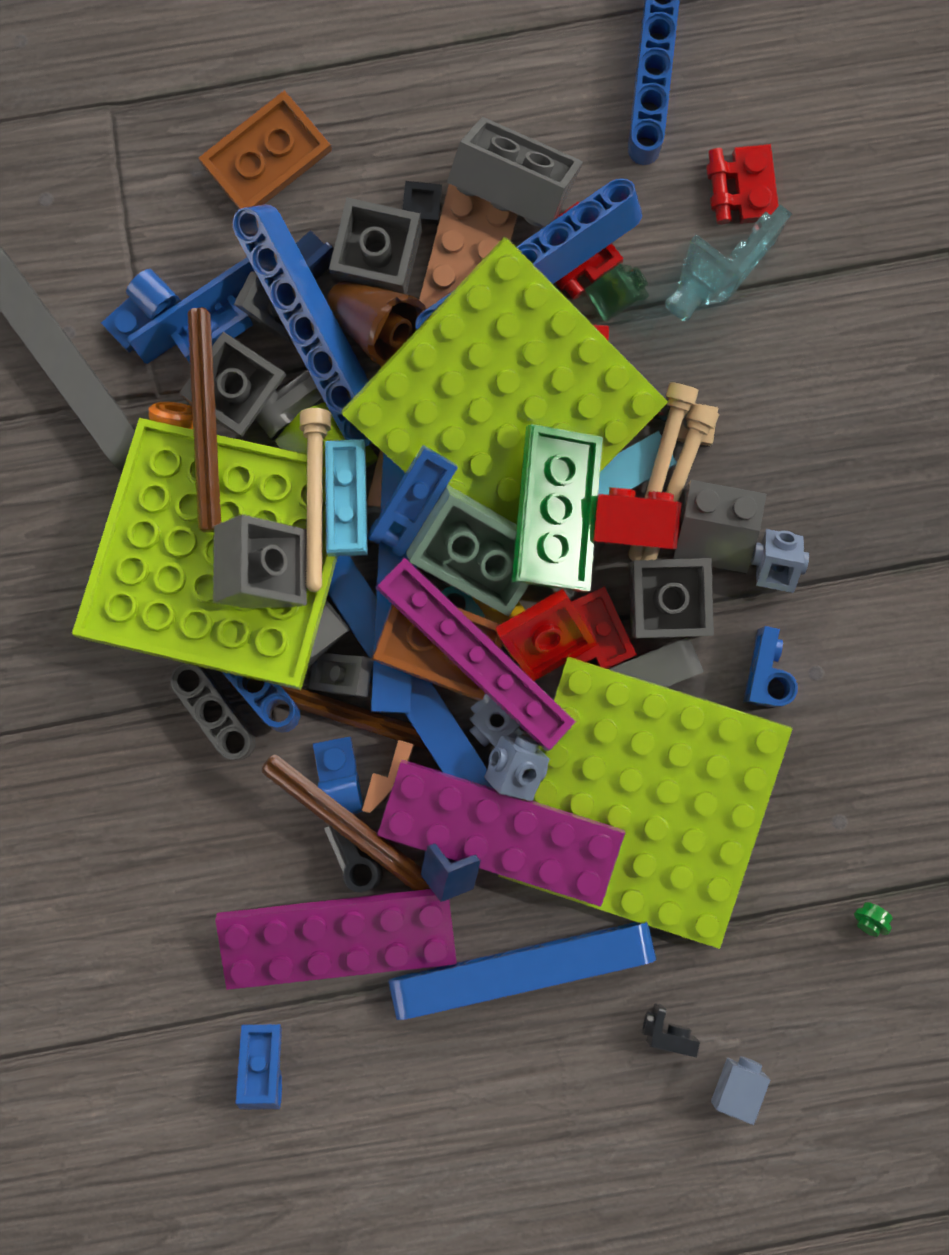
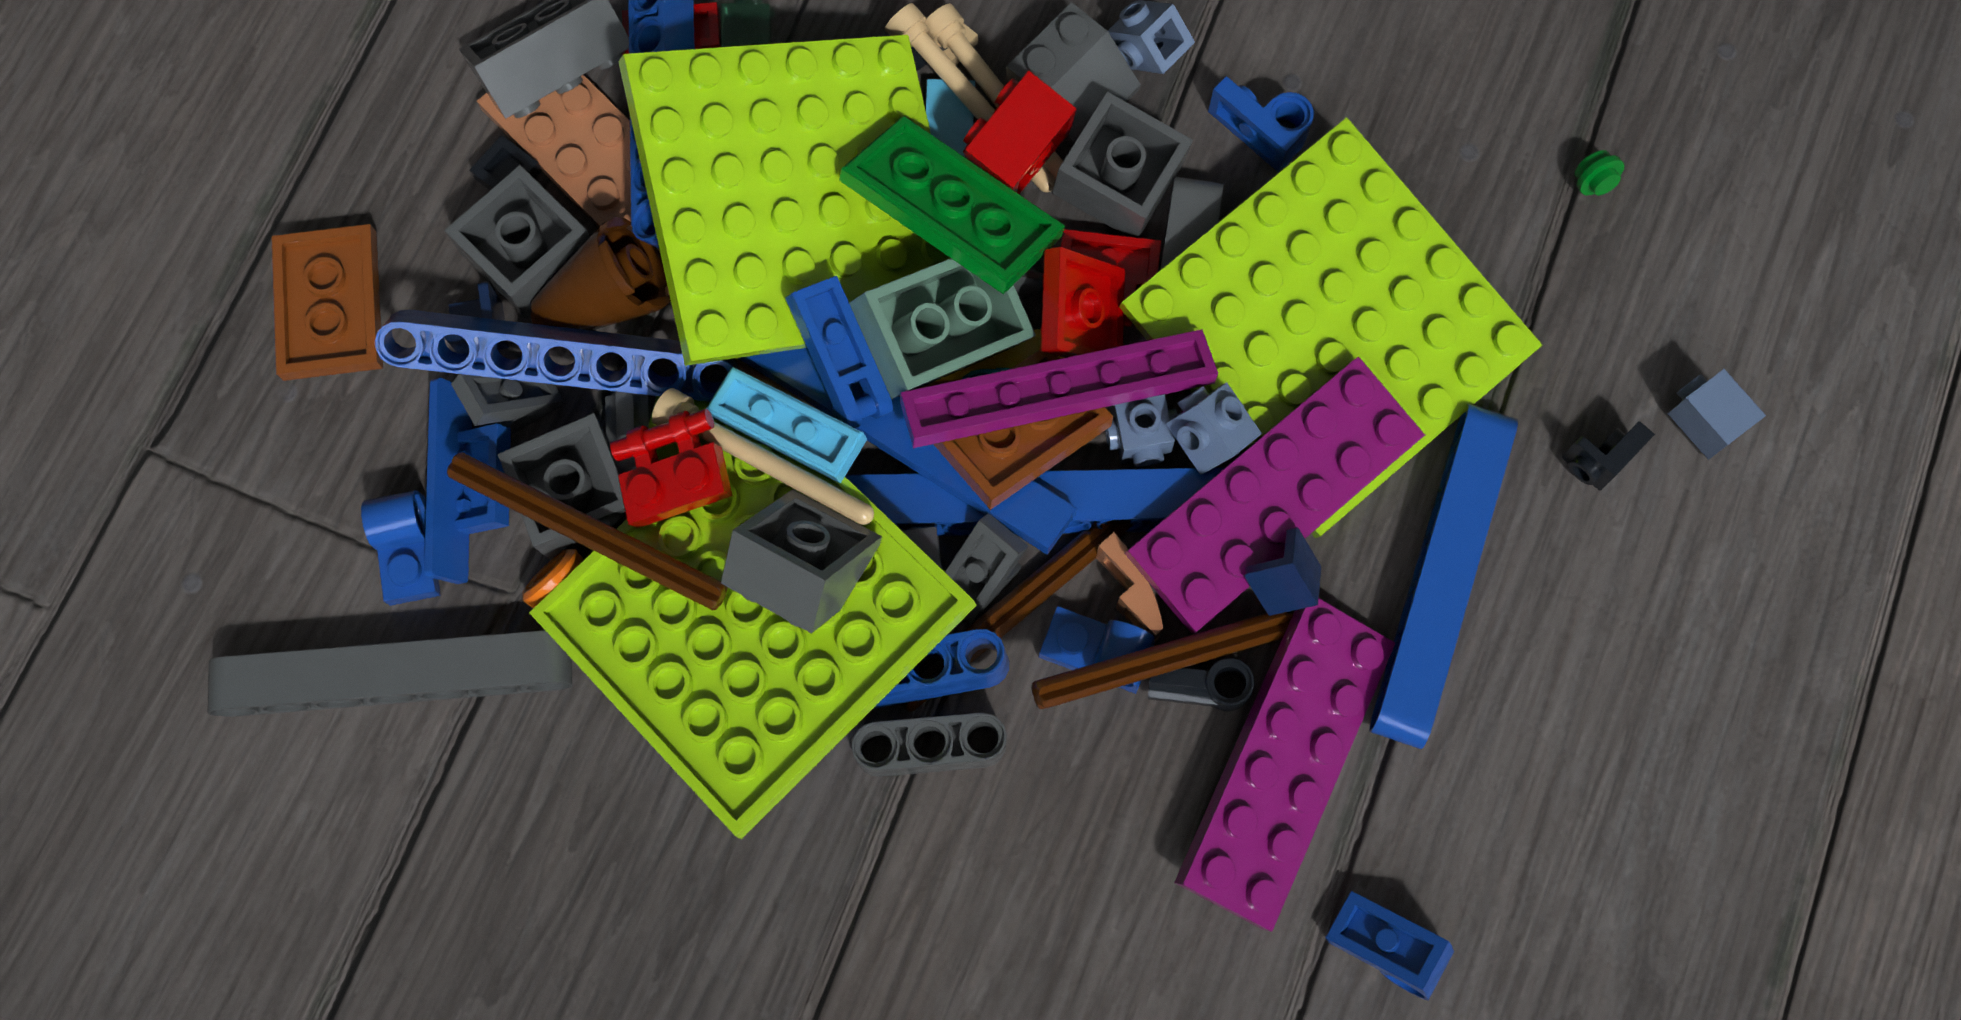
camera: 60 degrees left, 10 degrees down
(265, 454) = (674, 483): none -> red plate

